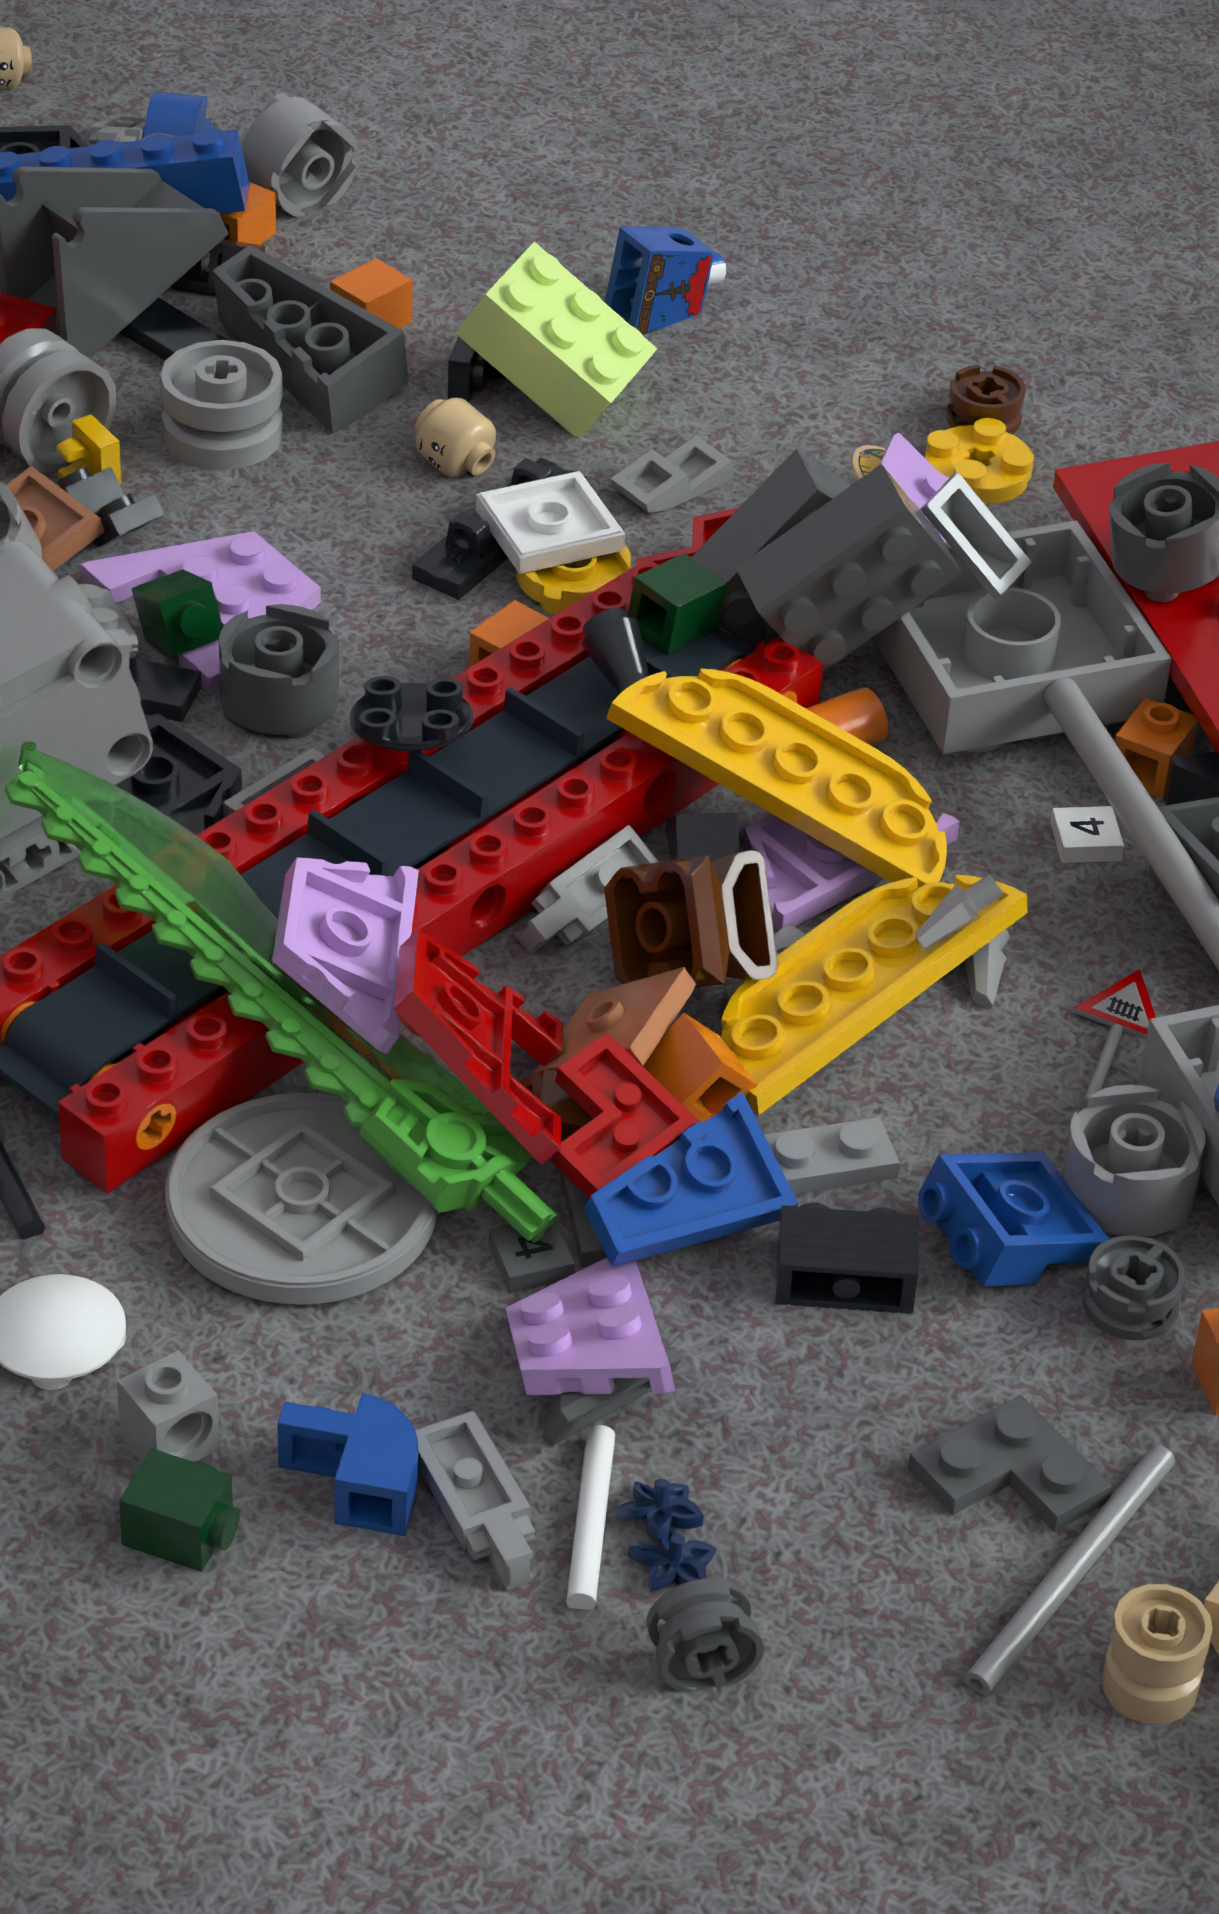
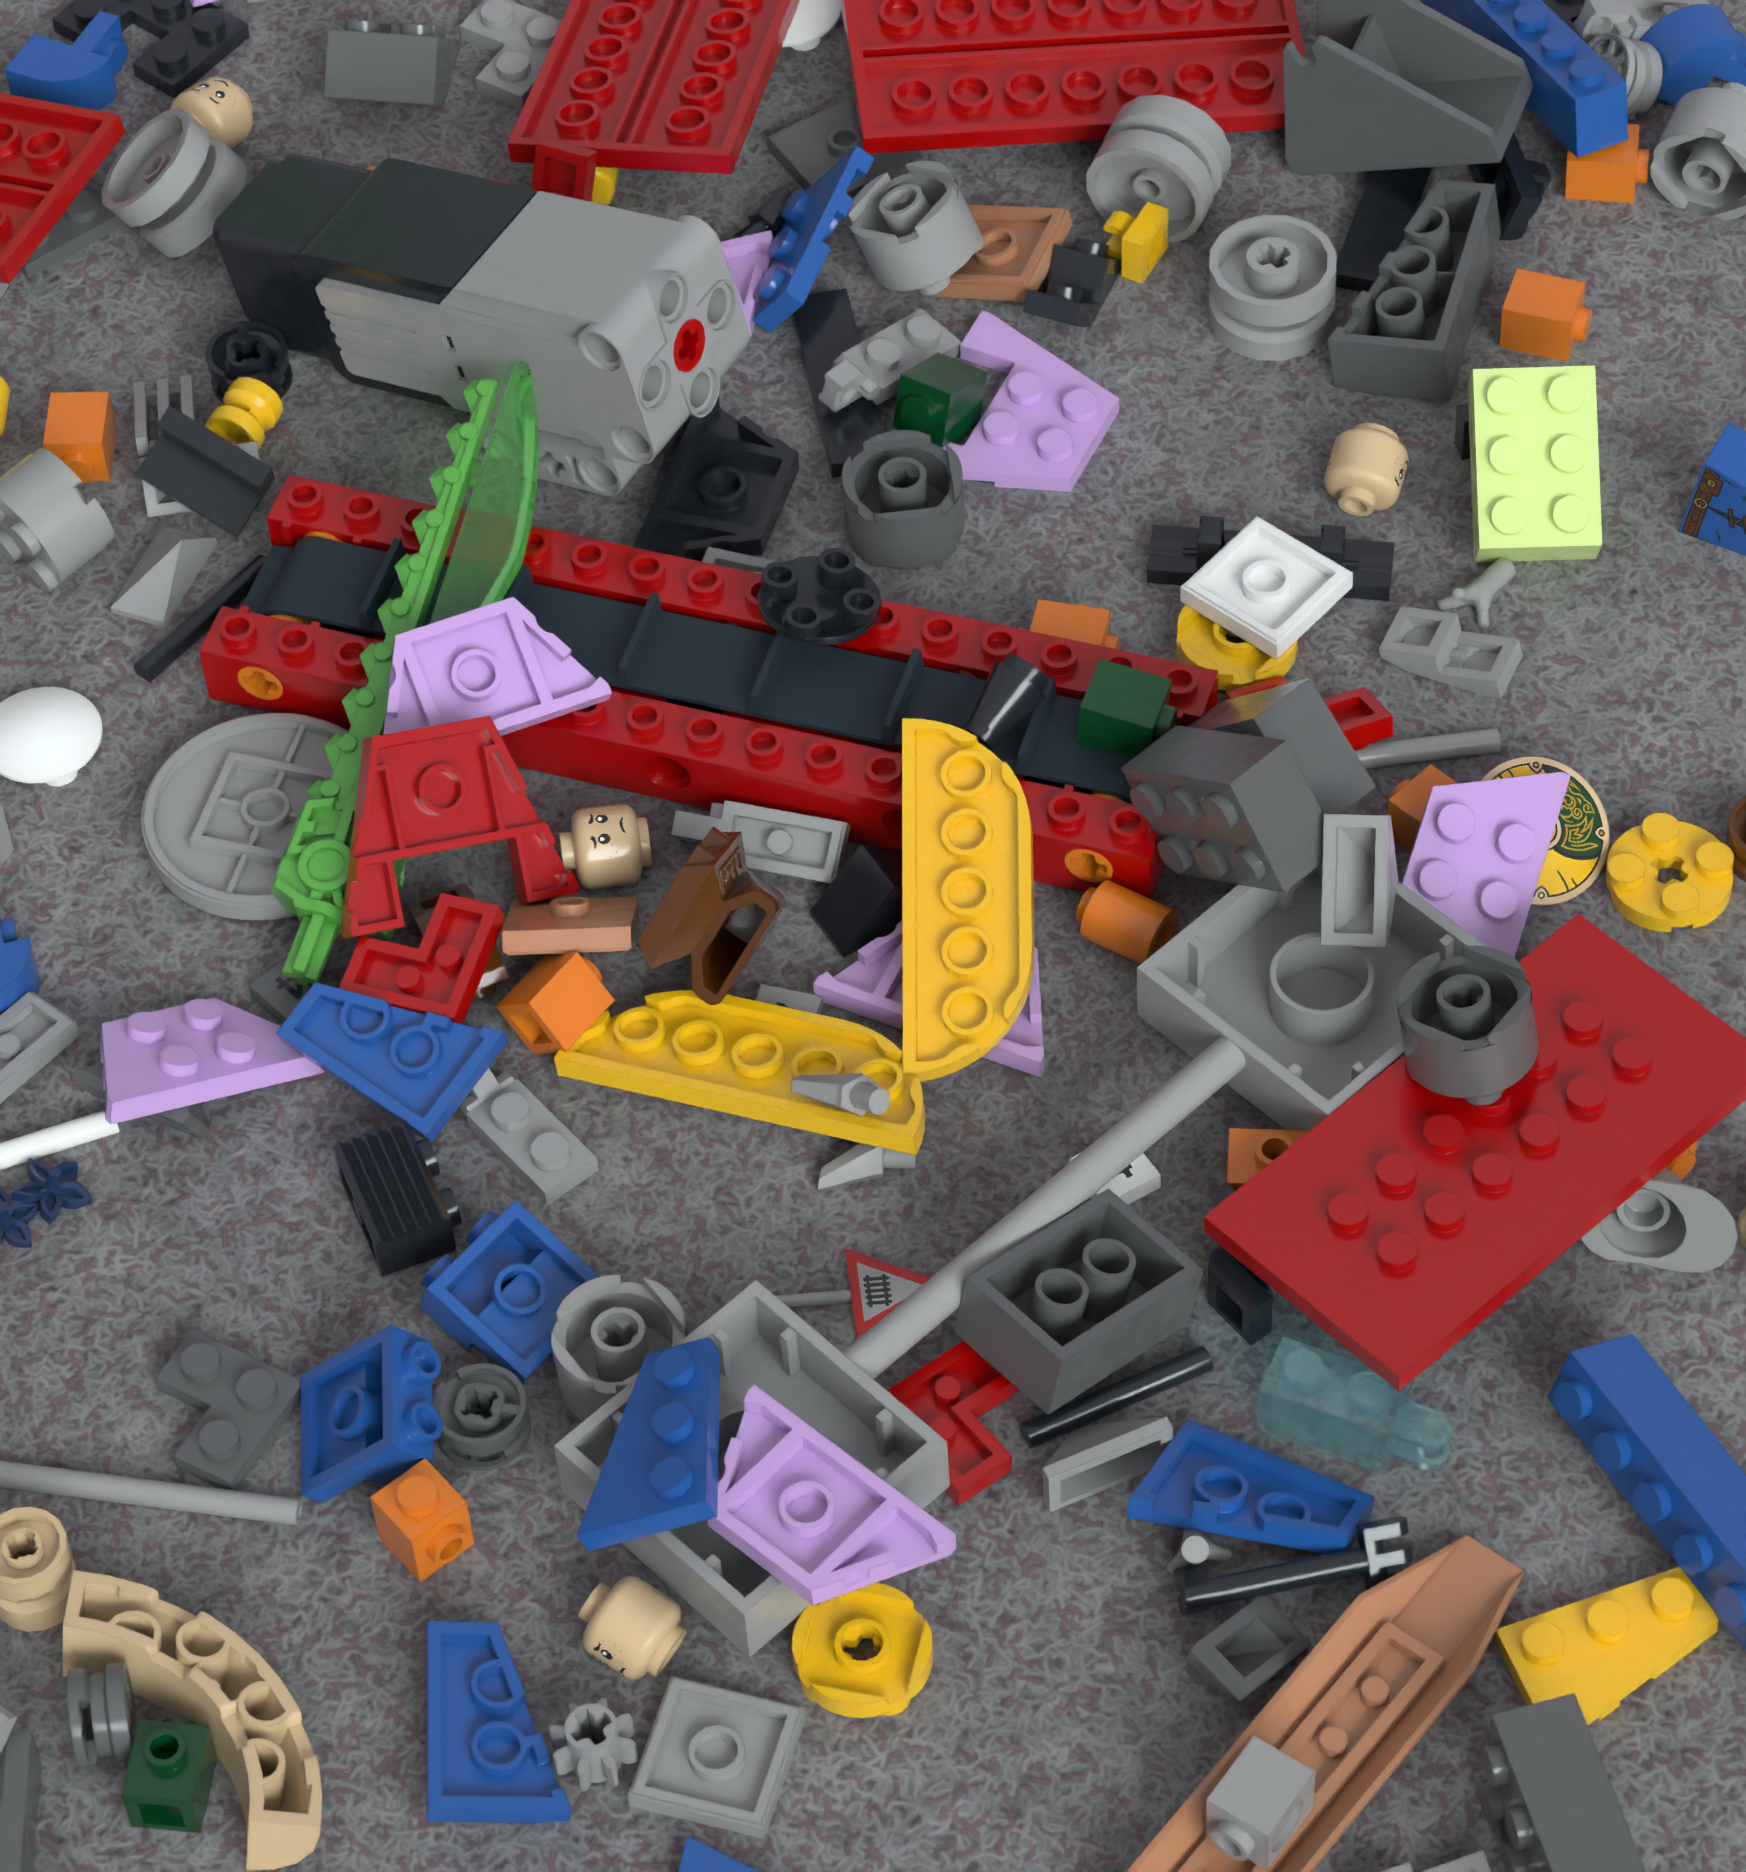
camera: 70 degrees right, 10 degrees up
(533, 970) = (606, 846): none -> tan head
(620, 440) = (1481, 590): none -> light grey bar
(1109, 1348) = (368, 1413): none -> blue plate

